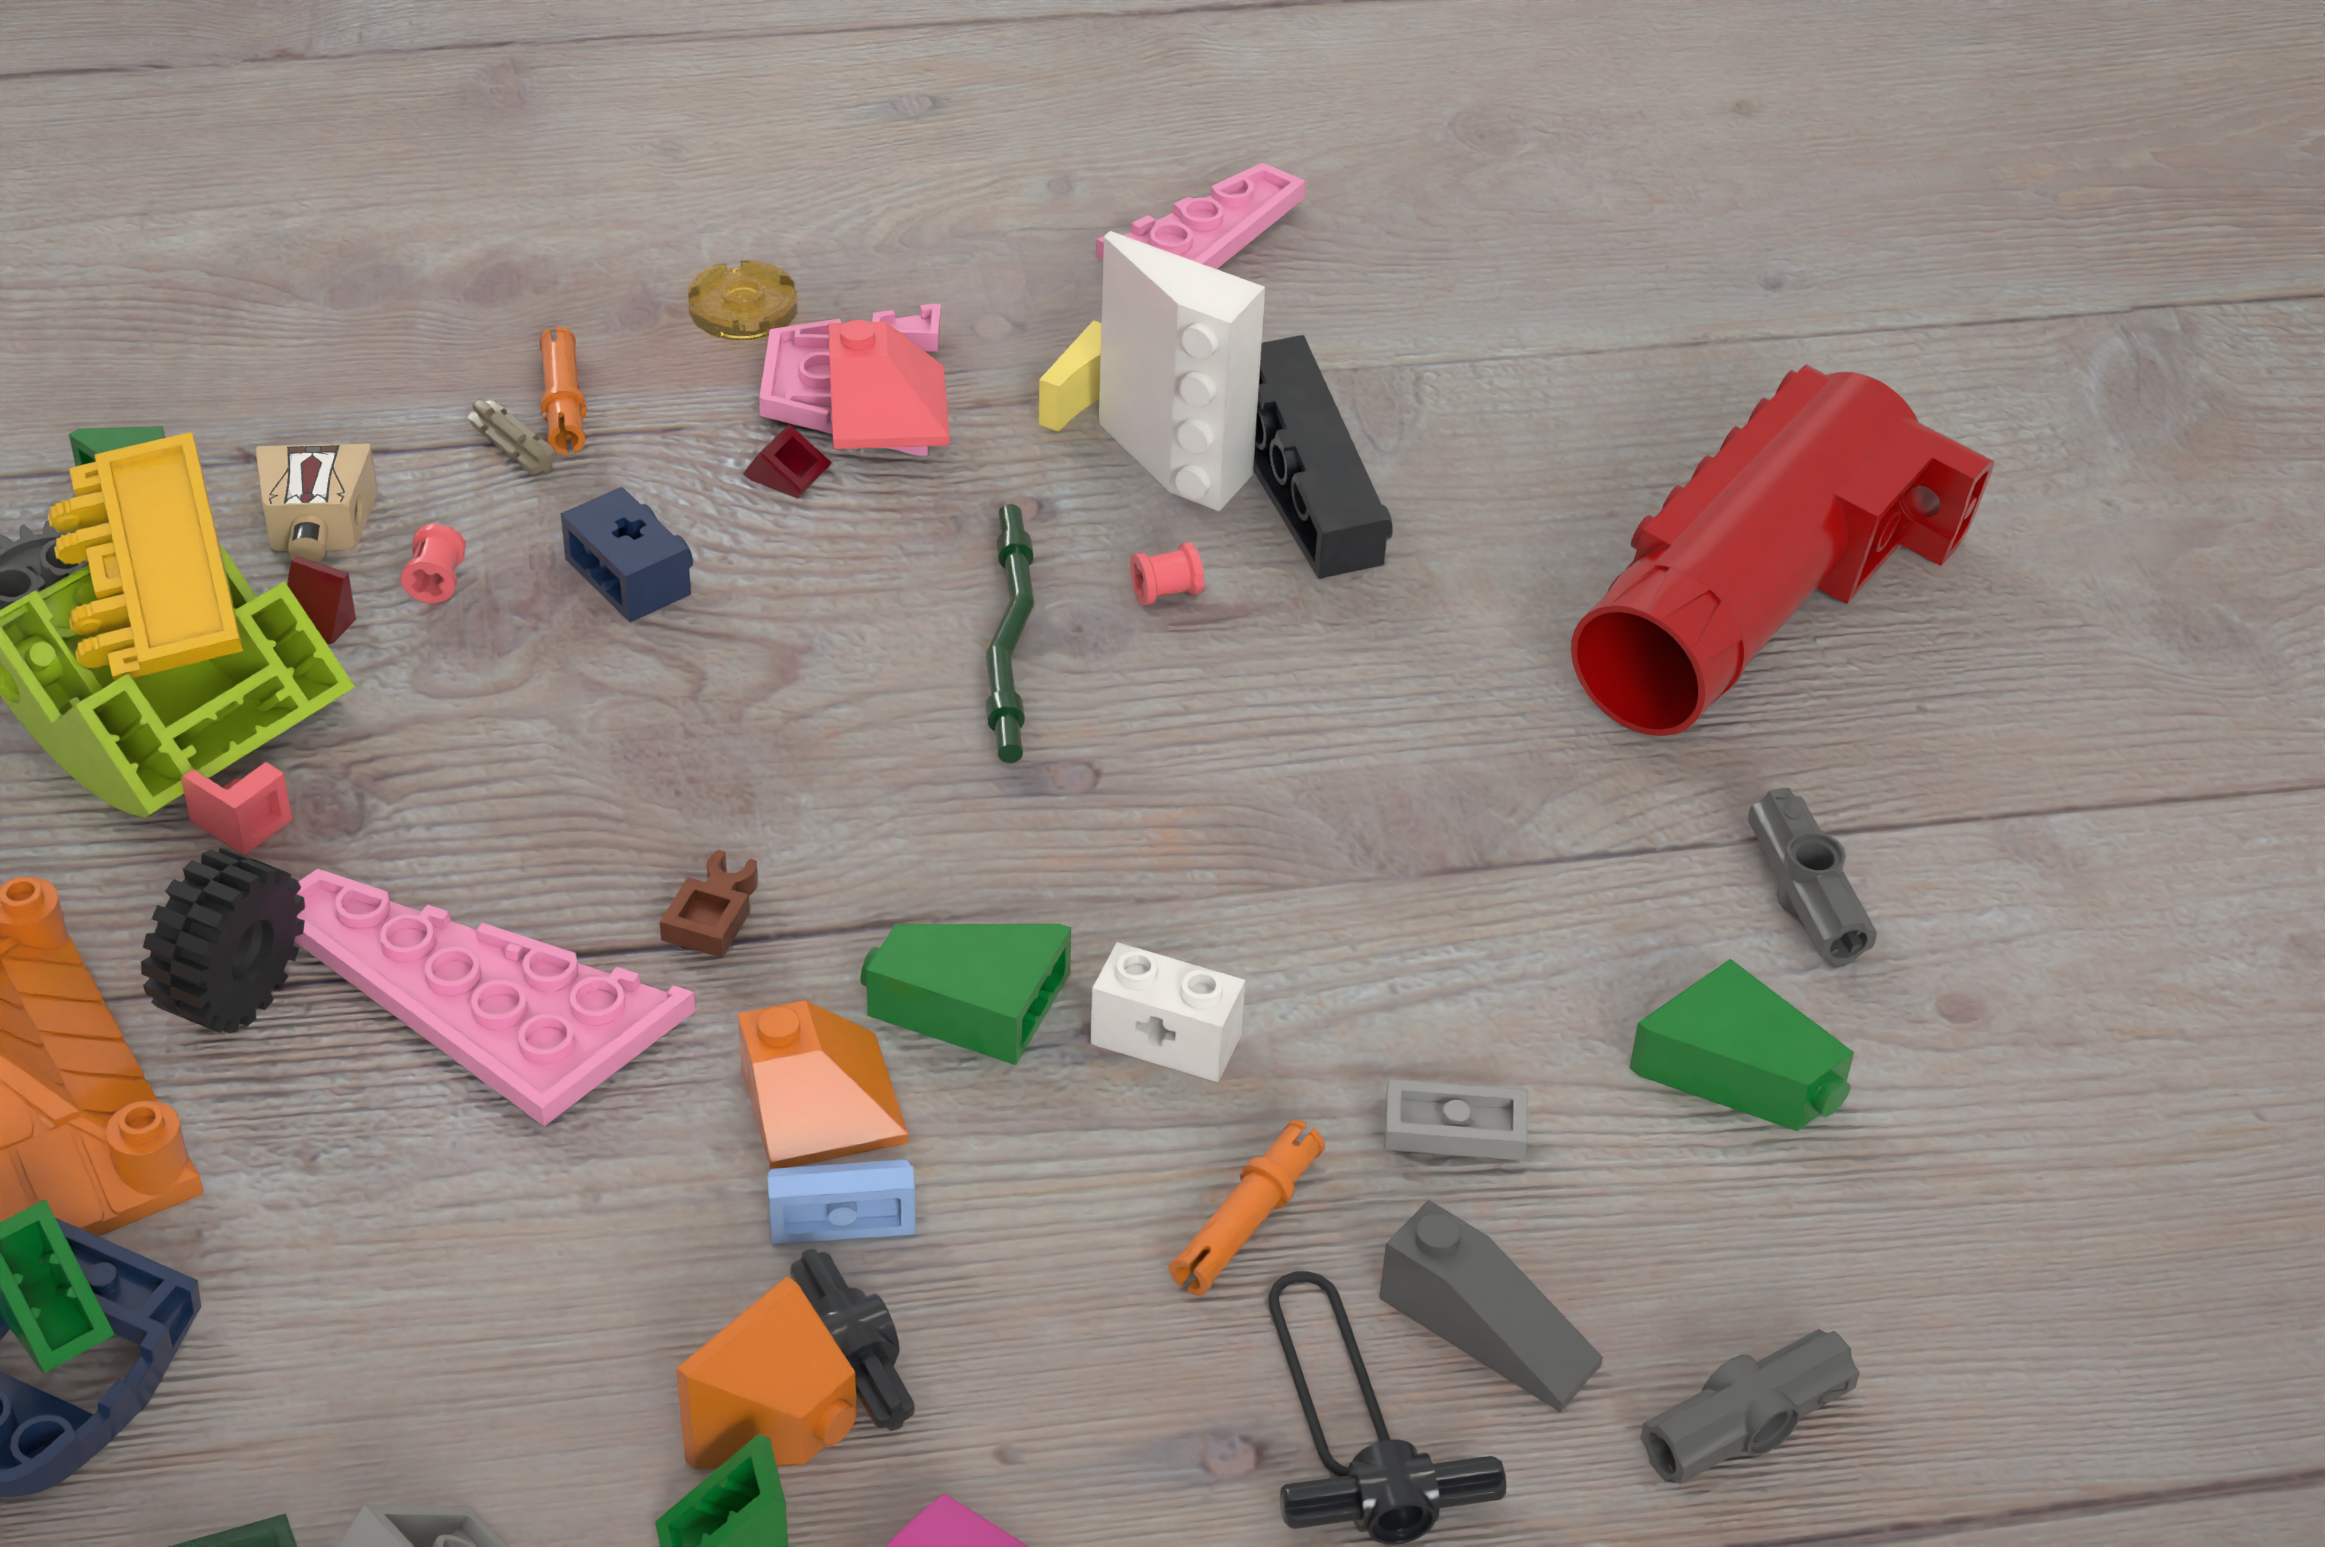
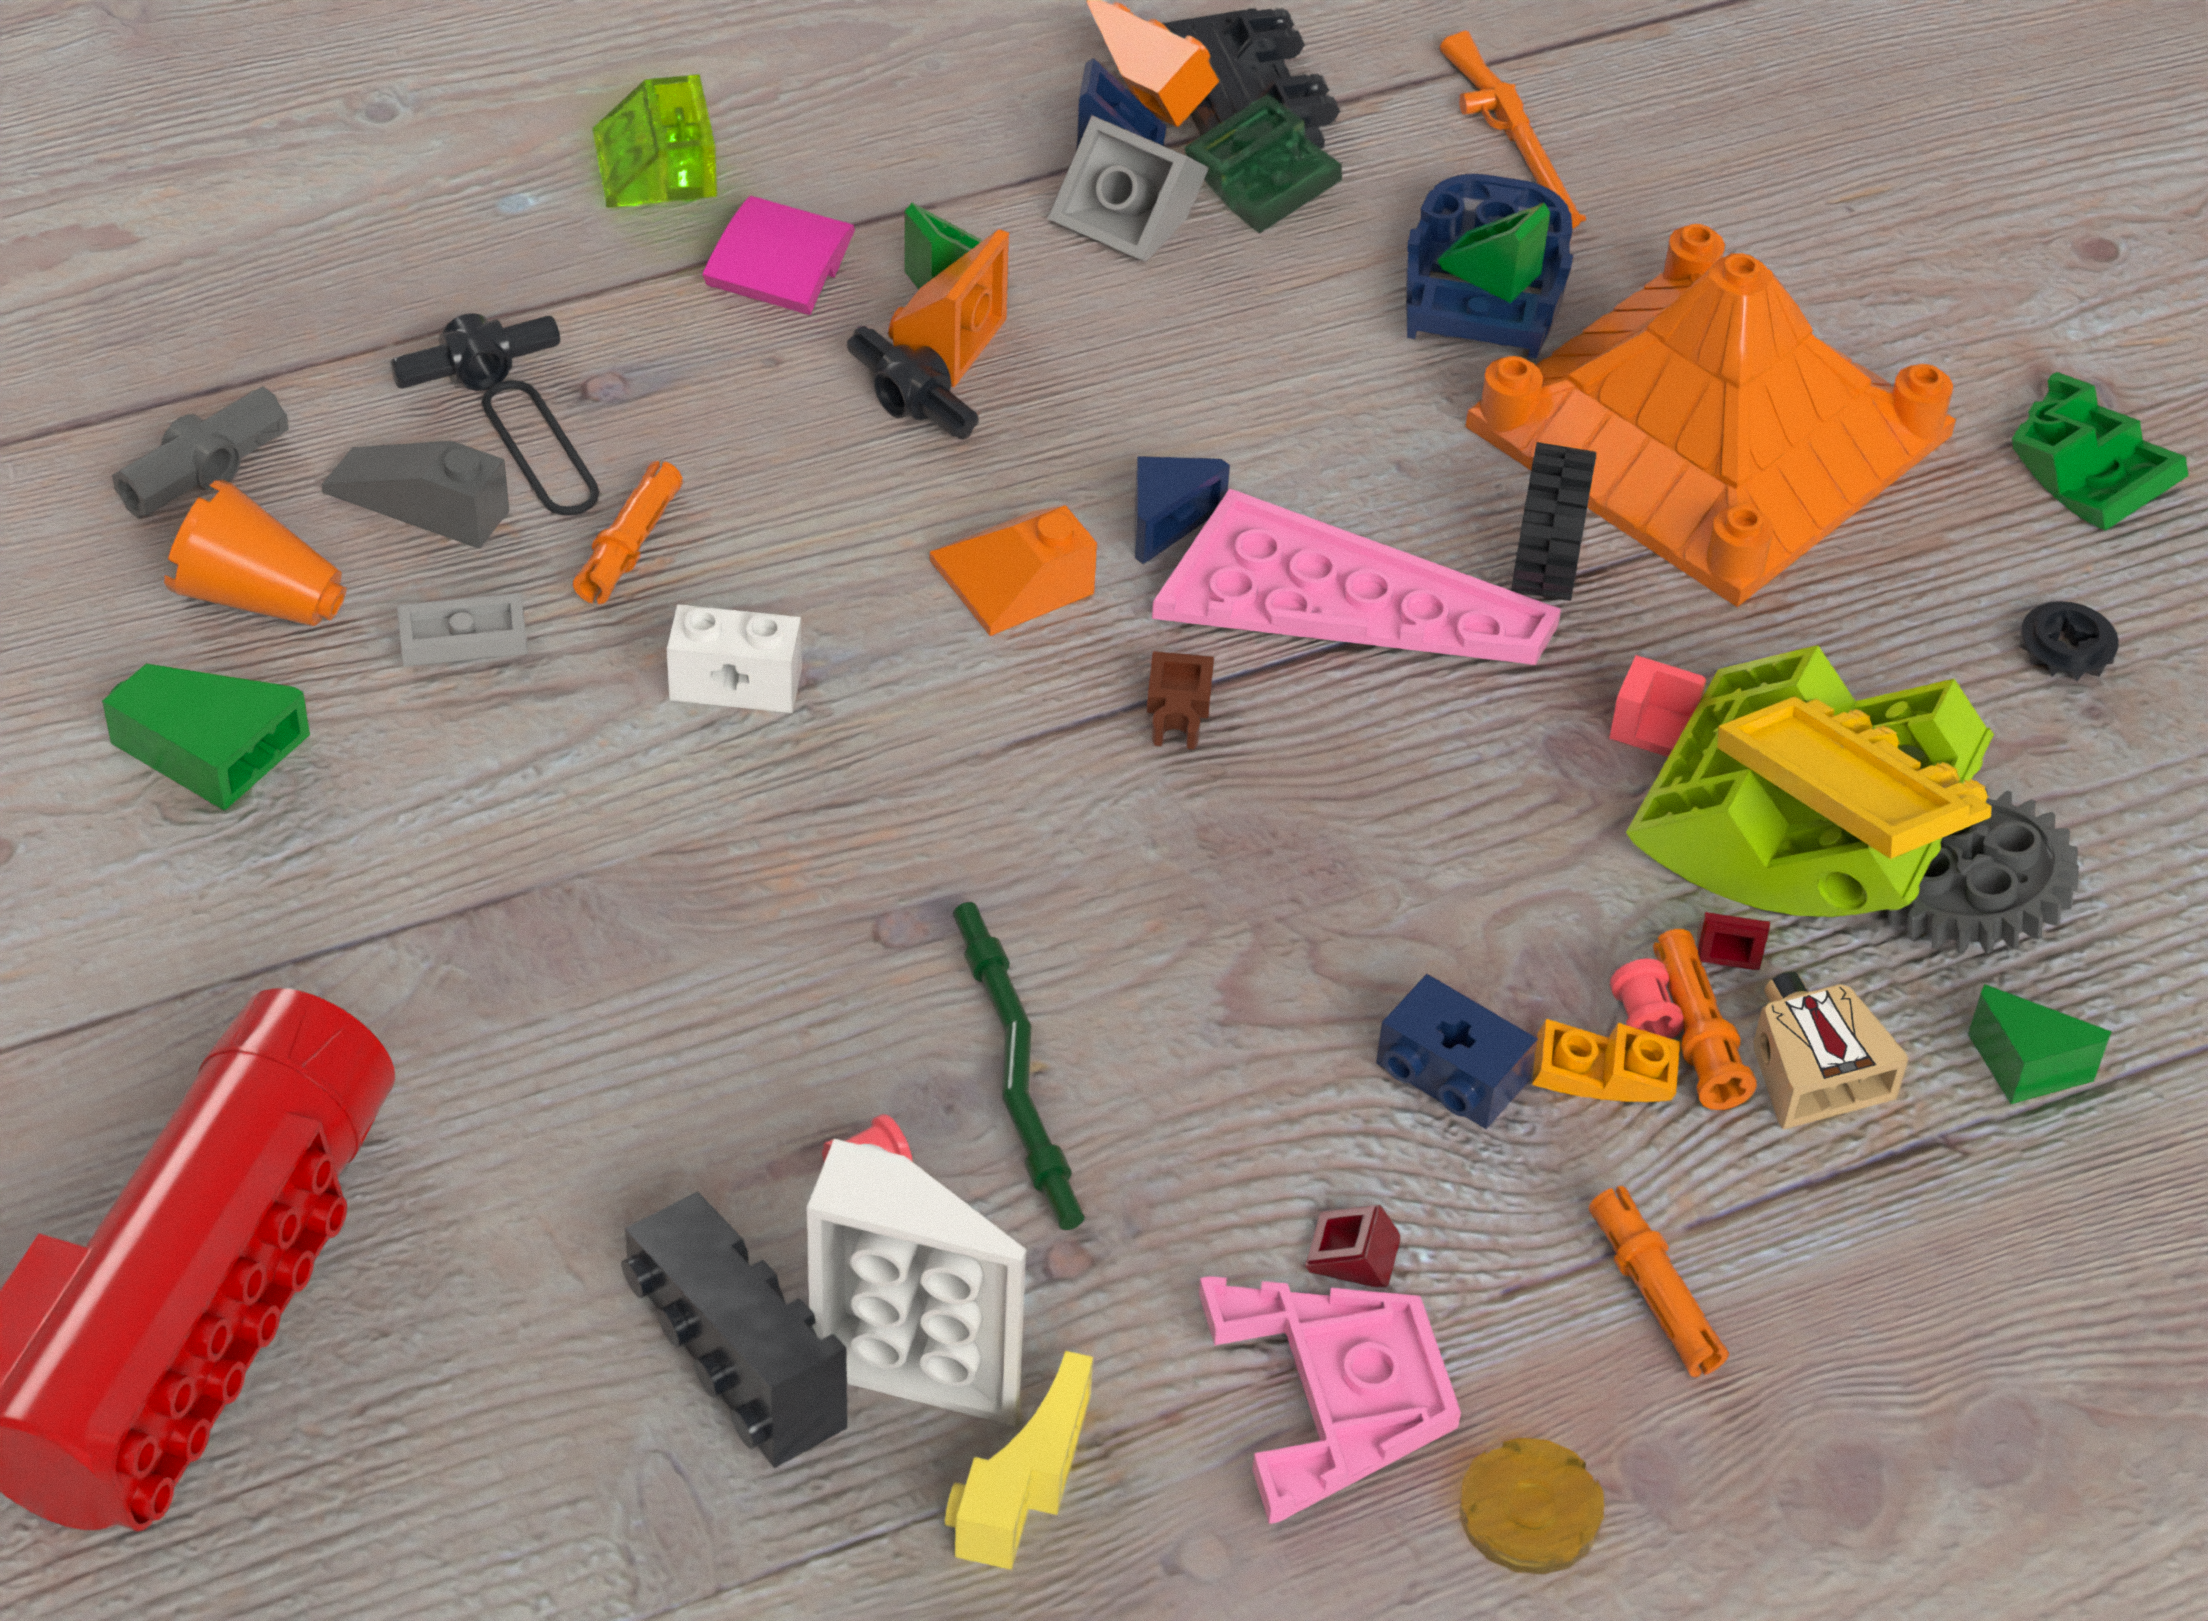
camera: 165 degrees right, 5 degrees up
(409, 501) = (1708, 1039): none -> orange pin
(499, 545) = (1623, 1068): none -> light orange slope
(512, 436) = (1677, 1206): dark tan axle -> none
(612, 1114) = (1174, 499): none -> dark blue slope
(841, 1201) = (961, 482): light blue panel -> none
(884, 389) = (1268, 1302): coral slope -> none
(969, 982) = (921, 661): green slope -> none
(1694, 1208) = (251, 562): none -> orange cone
(1812, 876) = (133, 914): dark grey piece -> none

